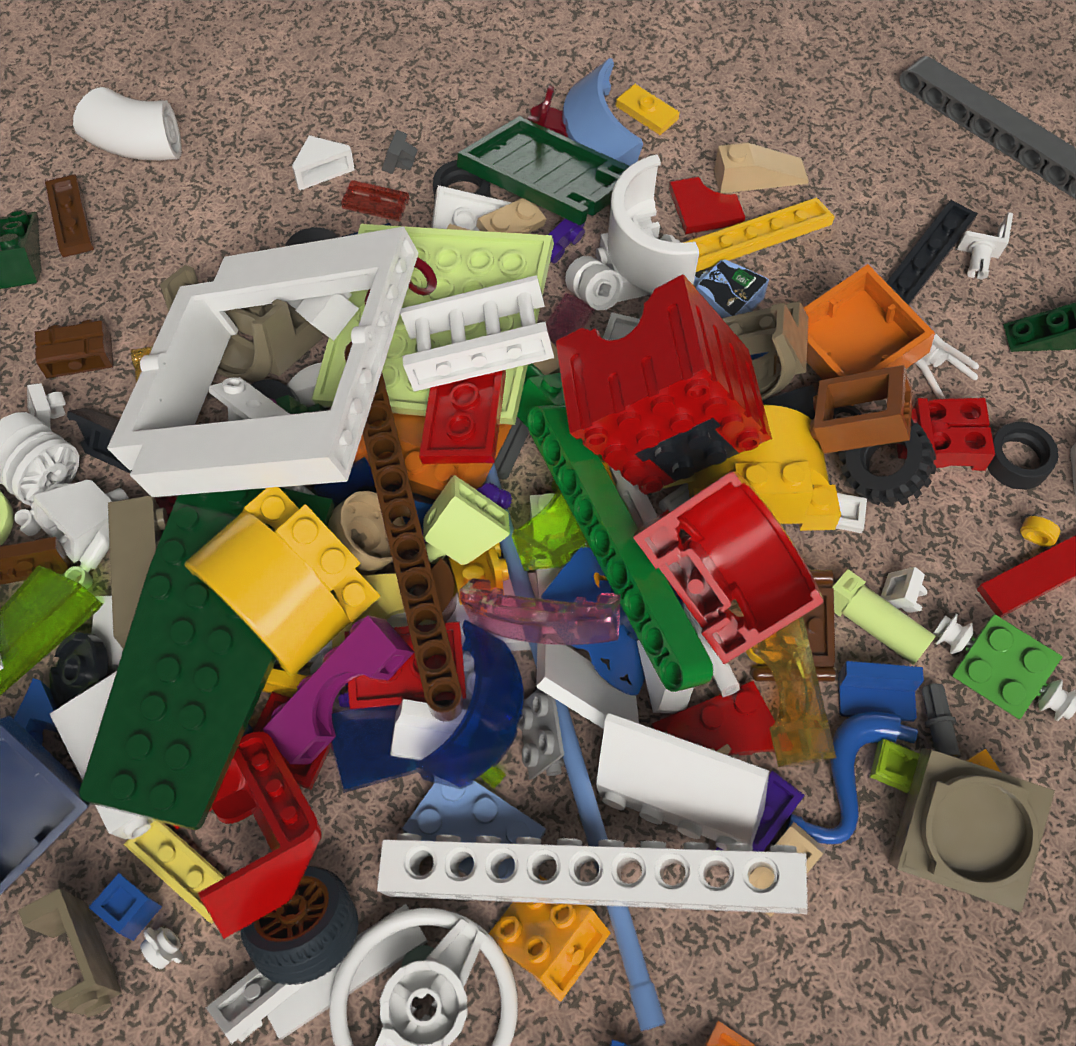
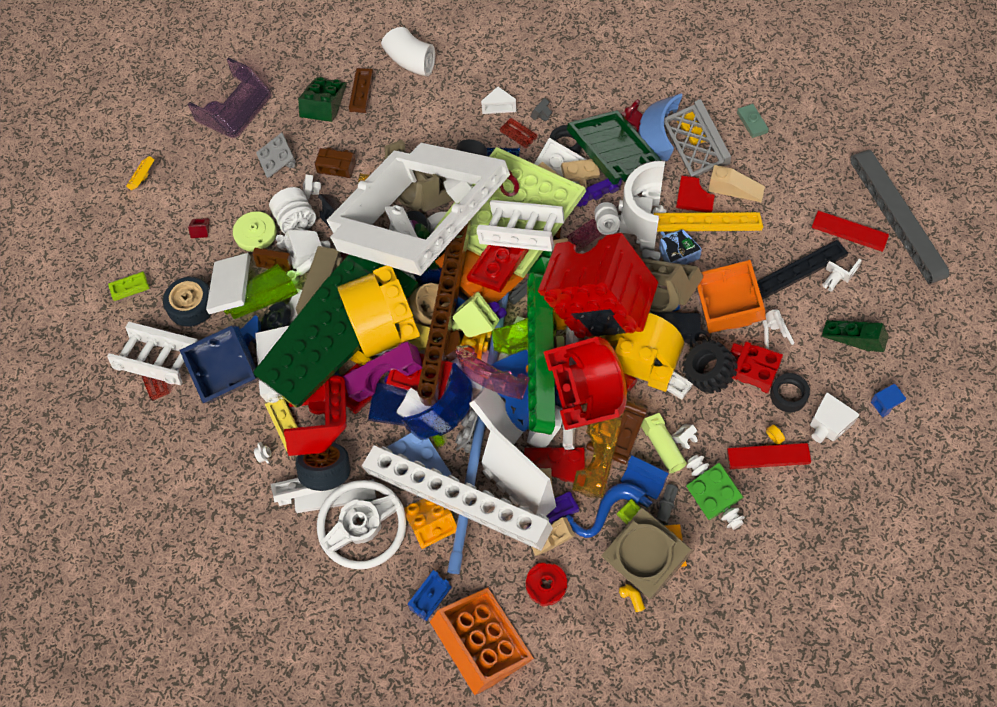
camera: 30 degrees right, 0 degrees up
(64, 913) = (227, 421): dark tan panel -> none
(125, 907) = (254, 430): blue panel -> none
(686, 106) = (711, 133): none -> light grey fence
(729, 70) = (752, 120): none -> sand green plate
(843, 957) = (543, 595): none -> red plate
(864, 429) = (721, 334): dark orange window -> none
(959, 181) = (850, 231): none -> red tile
(980, 913) = (634, 595): none -> yellow arm

